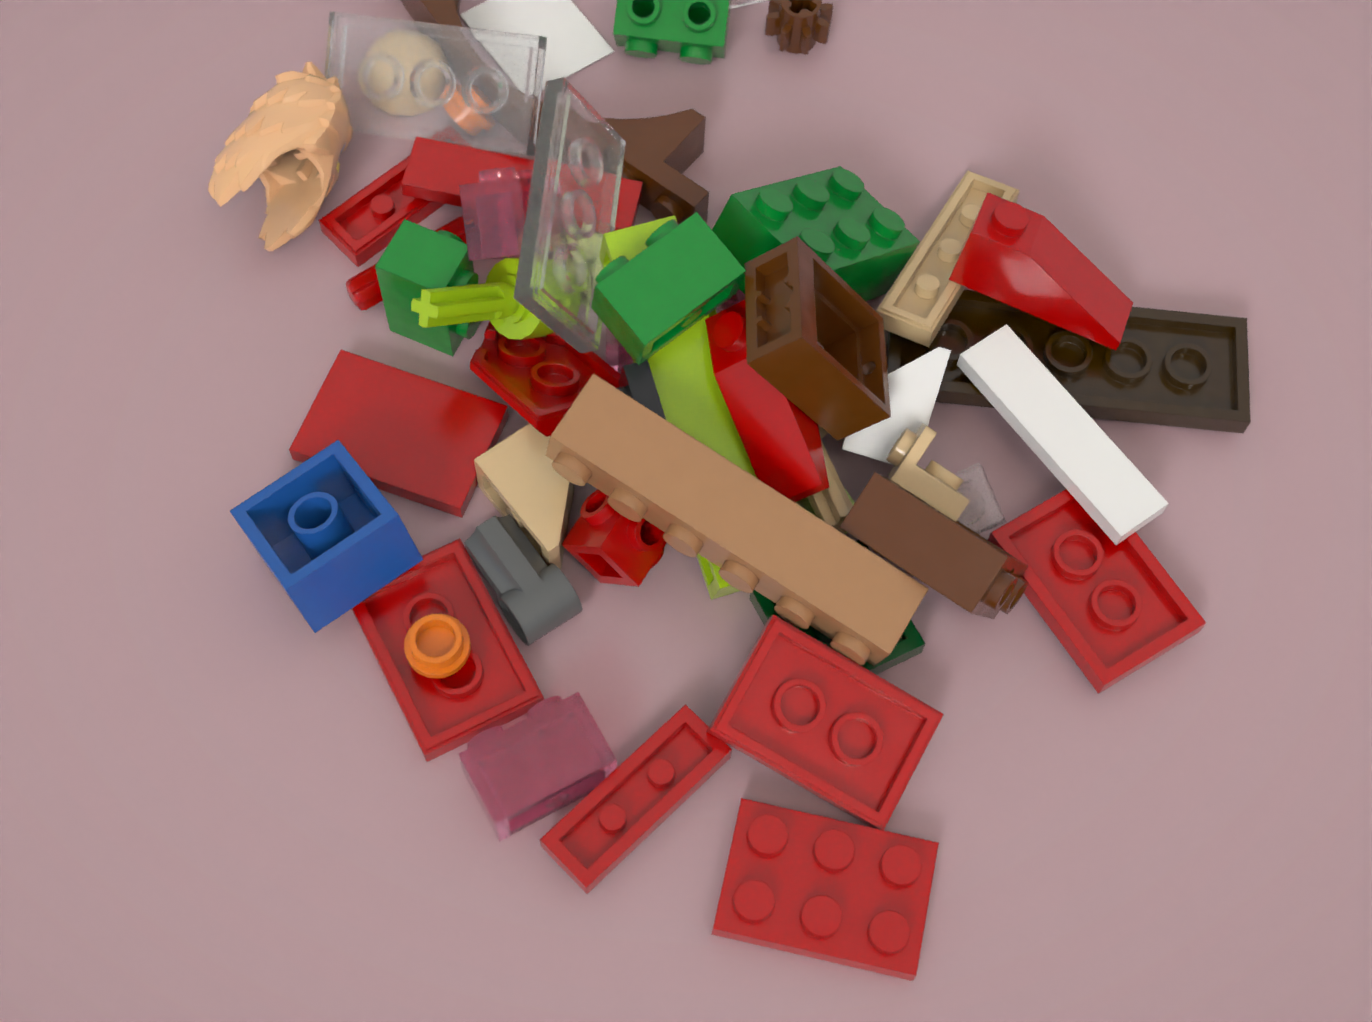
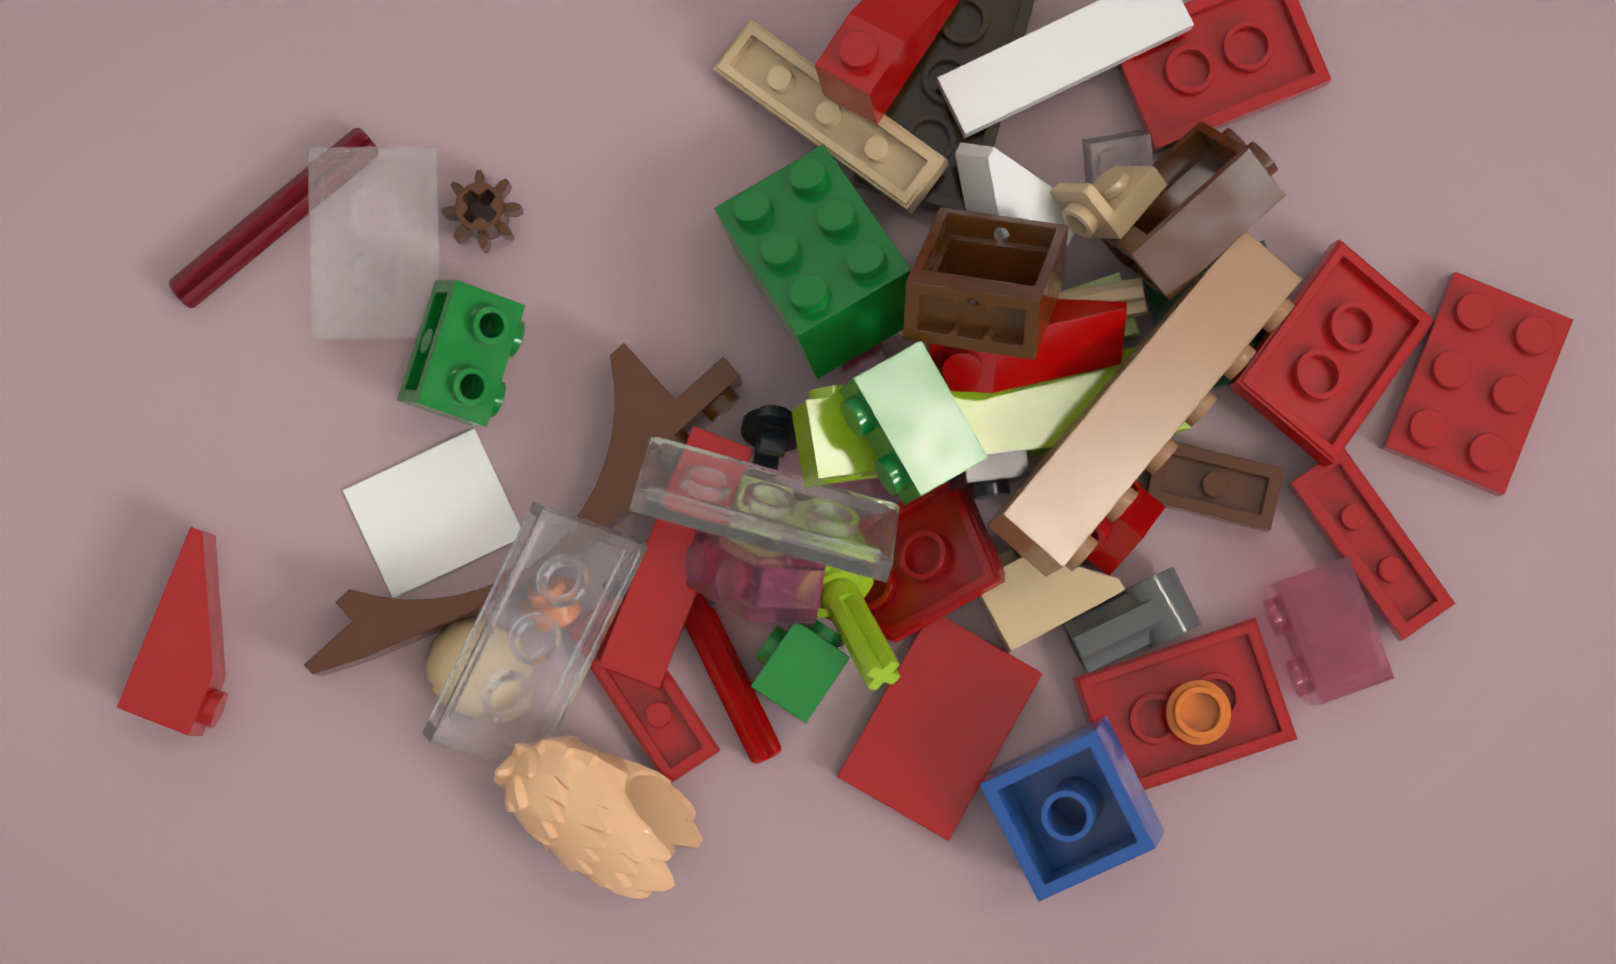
camera: 75 degrees left, 20 degrees up
(670, 638) = (1218, 486): none -> reddish brown plate

